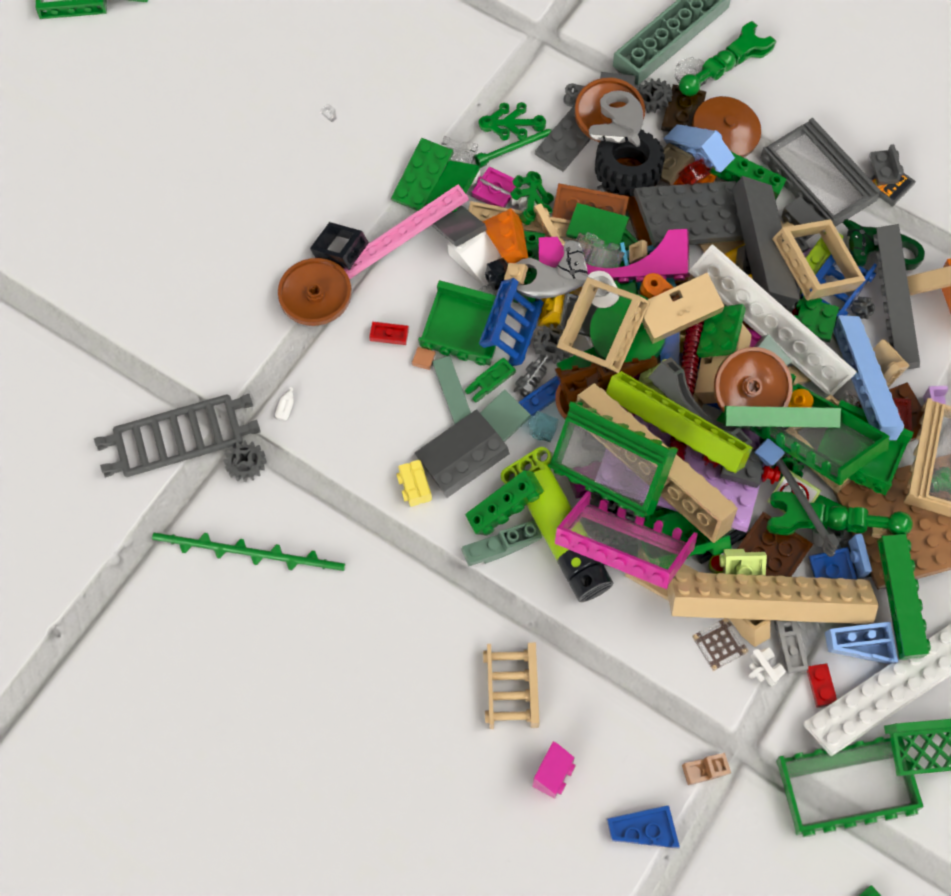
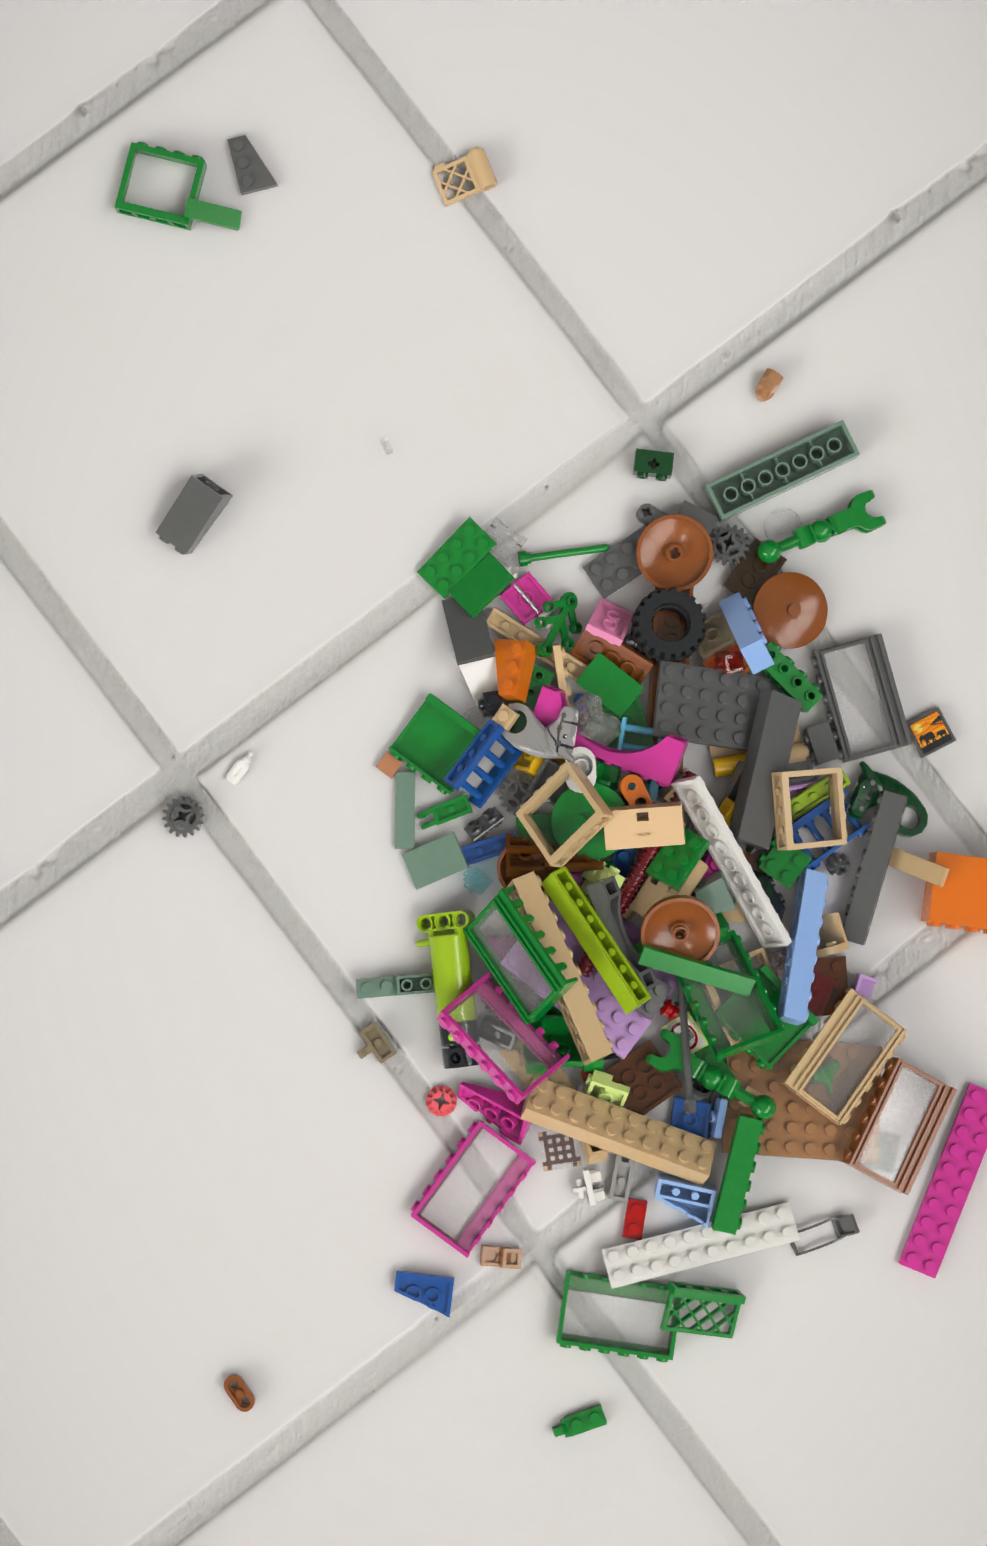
camera: 15 degrees right, 20 degrees up
(123, 465) = (127, 789): dark grey bar -> none
(174, 210) = (193, 513): none -> dark grey slope
(256, 554) = (166, 914): green plant -> none
(314, 291) = (304, 658): dark orange dish -> none
(346, 258) = (353, 628): black window -> none
(389, 333) = (364, 727): red plate -> none
(408, 229) = (413, 623): bright pink plate -> none
(414, 482) = (335, 896): light yellow brick -> none
(462, 453) = (389, 881): dark grey slope -> none
(491, 123) = (569, 523): green plant -> none
(503, 603) = (376, 1043): none -> dark tan plate
(504, 503) = (409, 952): green brick -> none
(530, 715) = (376, 1119): tan fence -> none
(553, 771) = (365, 1214): dark pink slope -> none
(562, 58) = (662, 460): none -> dark green brick
(569, 177) = (610, 622): none -> bright pink plate
(581, 644) = (449, 1096): none -> coral gear
(625, 120) = (683, 580): light grey animal -> none
(637, 251) = (635, 735): tan plate -> none
(646, 624) = (496, 1109): none -> dark pink wedge
(650, 708) = (472, 1187): none -> clear window
(769, 452) = (673, 994): medium blue slope -> none
(801, 398) = (727, 951): light orange piece -> none
(886, 166) = (932, 715): dark grey bracket -> none

